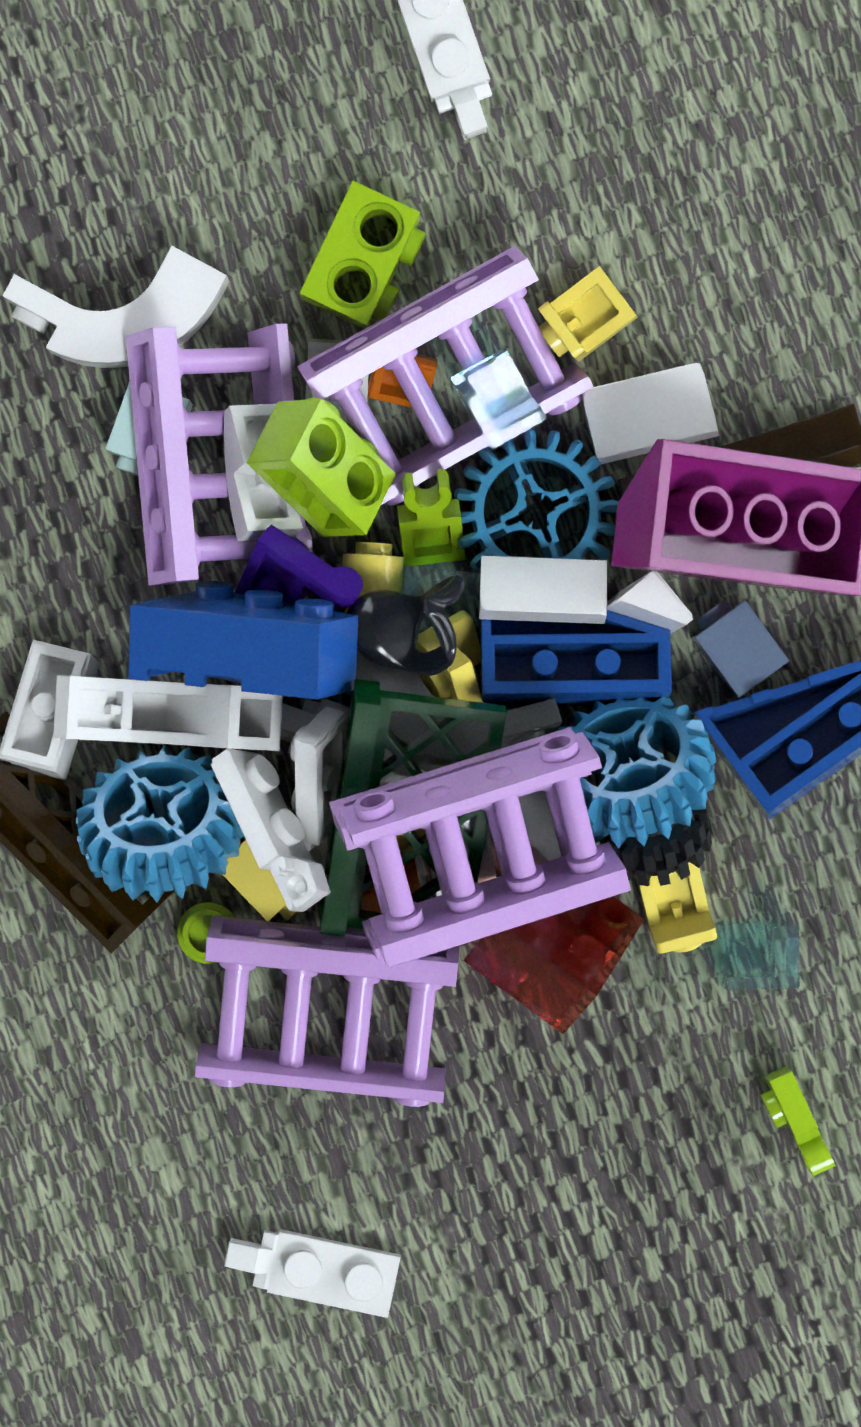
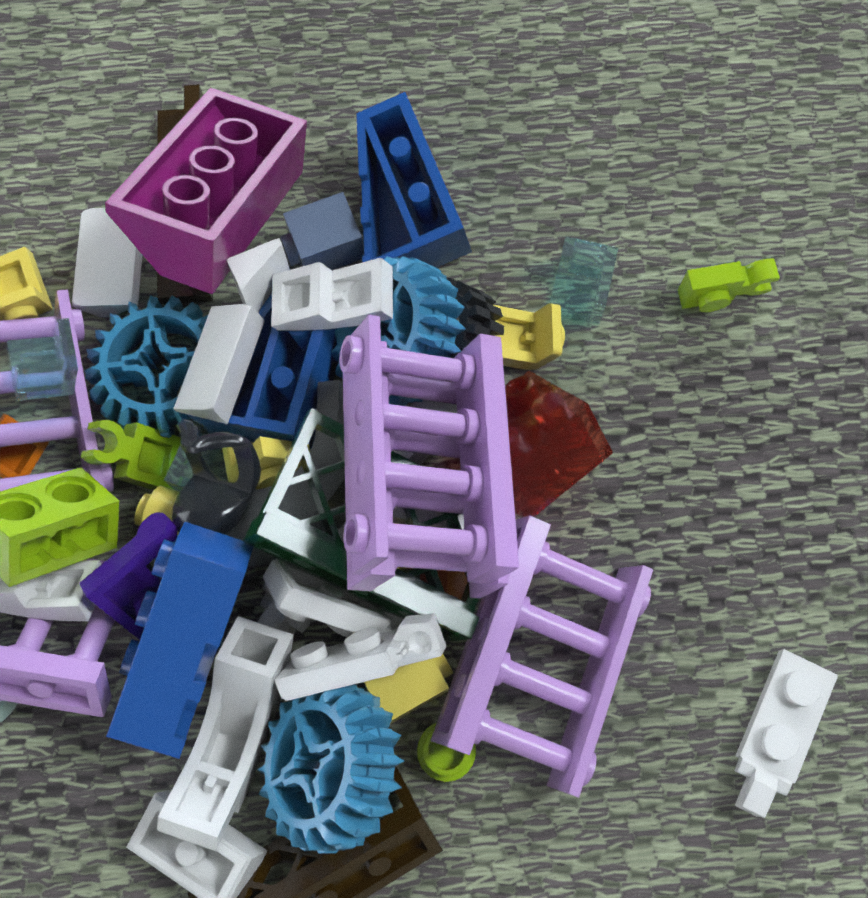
camera: 75 degrees left, 15 degrees down
(643, 693) = (329, 299): none -> white slope

